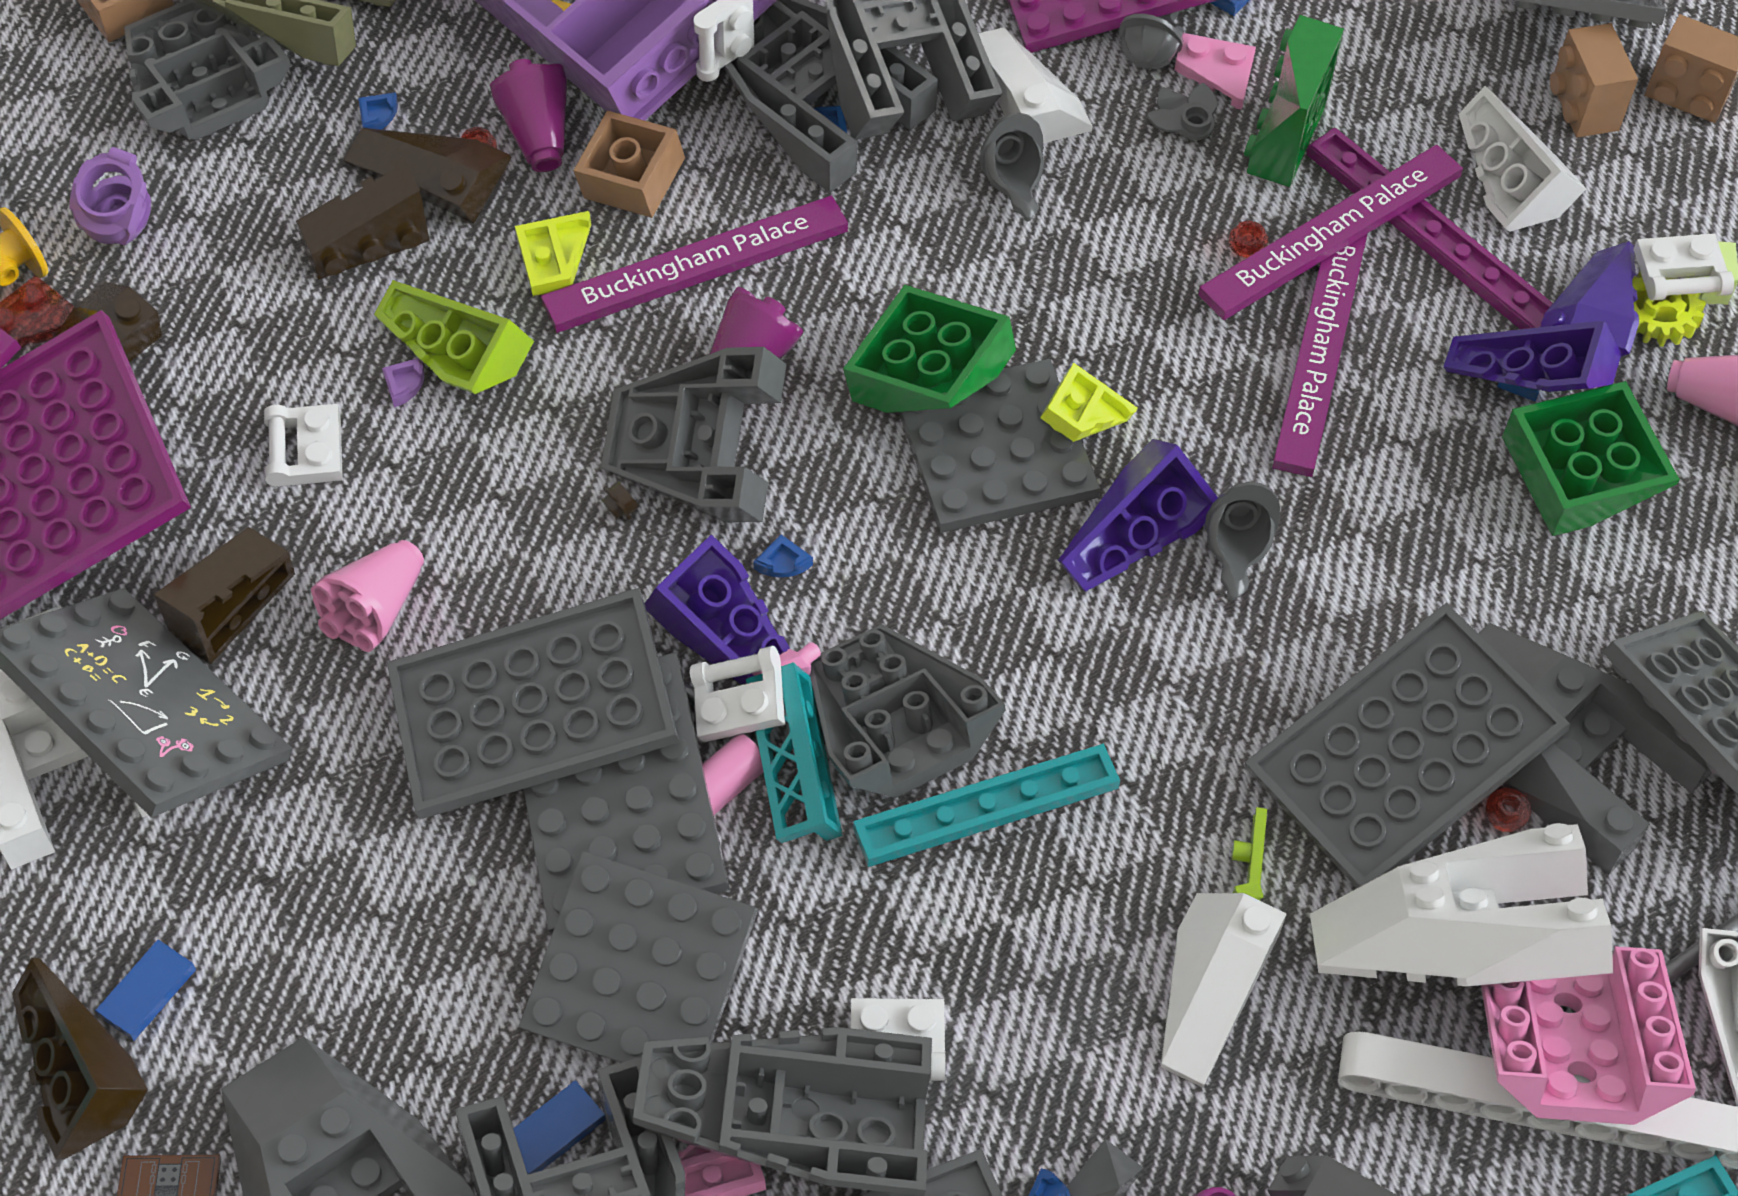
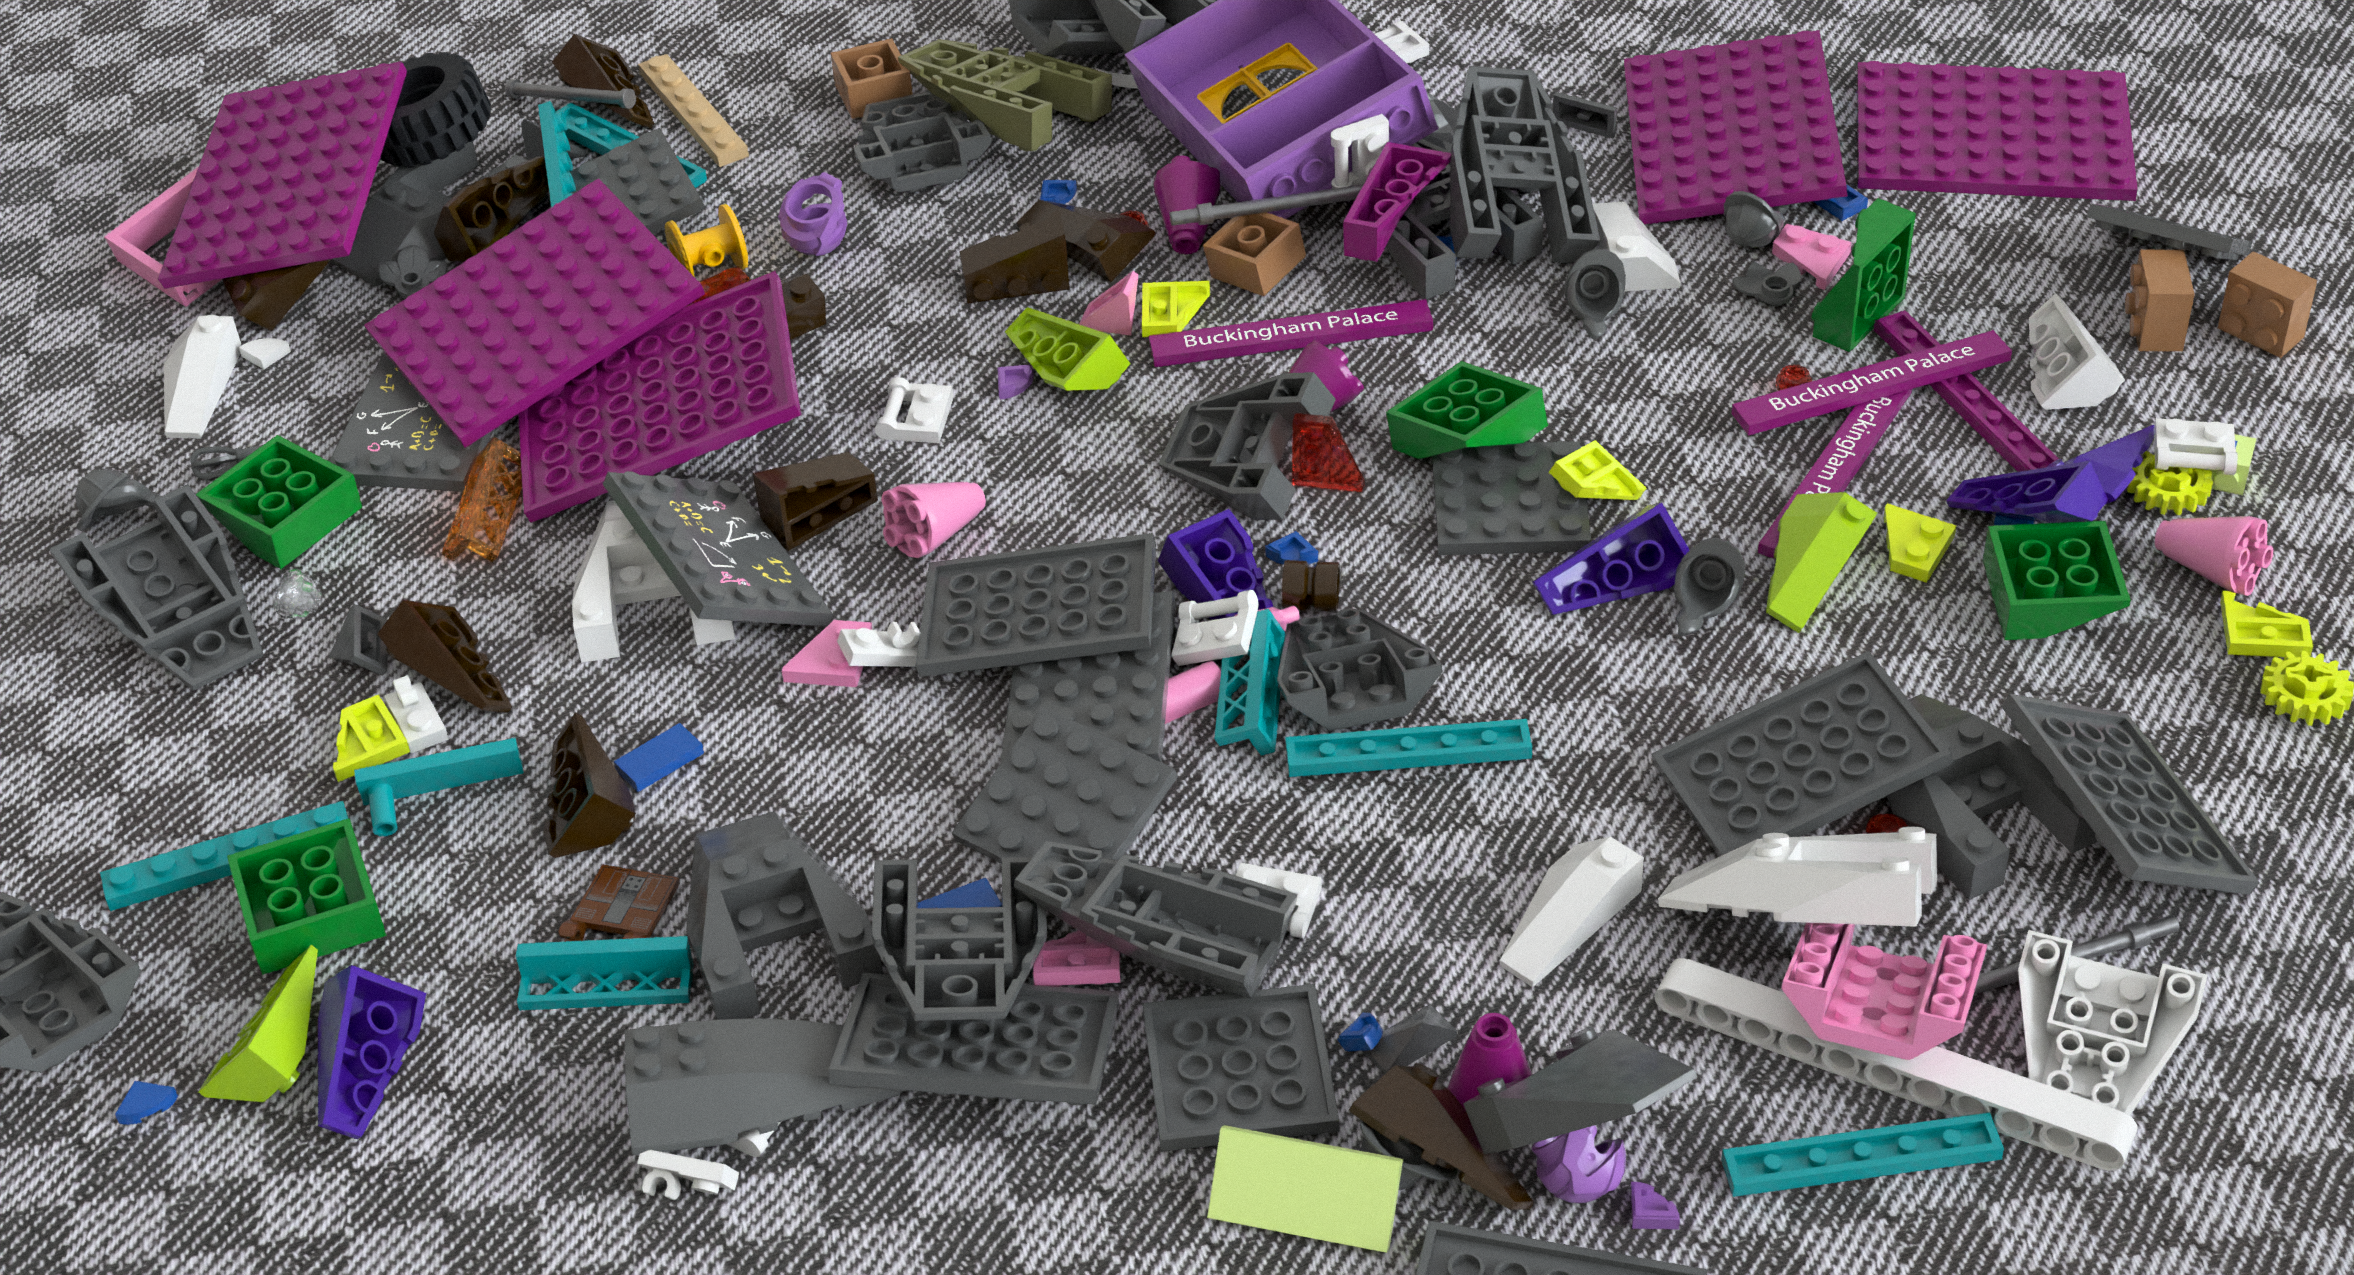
camera: 20 degrees right, 15 degrees down
(308, 804) = (823, 660): none -> bright pink wing
(364, 789) = (880, 648): none -> white plate
(490, 265) = (1114, 308): none -> bright pink slope
(571, 132) = (1207, 213): none -> flat silver bar
(619, 501) = (1164, 487): dark brown plate -> none
(775, 71) = (1386, 195): none -> magenta wedge
(787, 434) = (1322, 455): none -> clear red wing
(822, 610) = (1311, 585): none -> dark brown wheel
(1252, 854) = (1637, 822): lime piece -> none
(1339, 455) = (1812, 549): none -> lime wedge
(1428, 426) = (1915, 542): none -> neon yellow wing

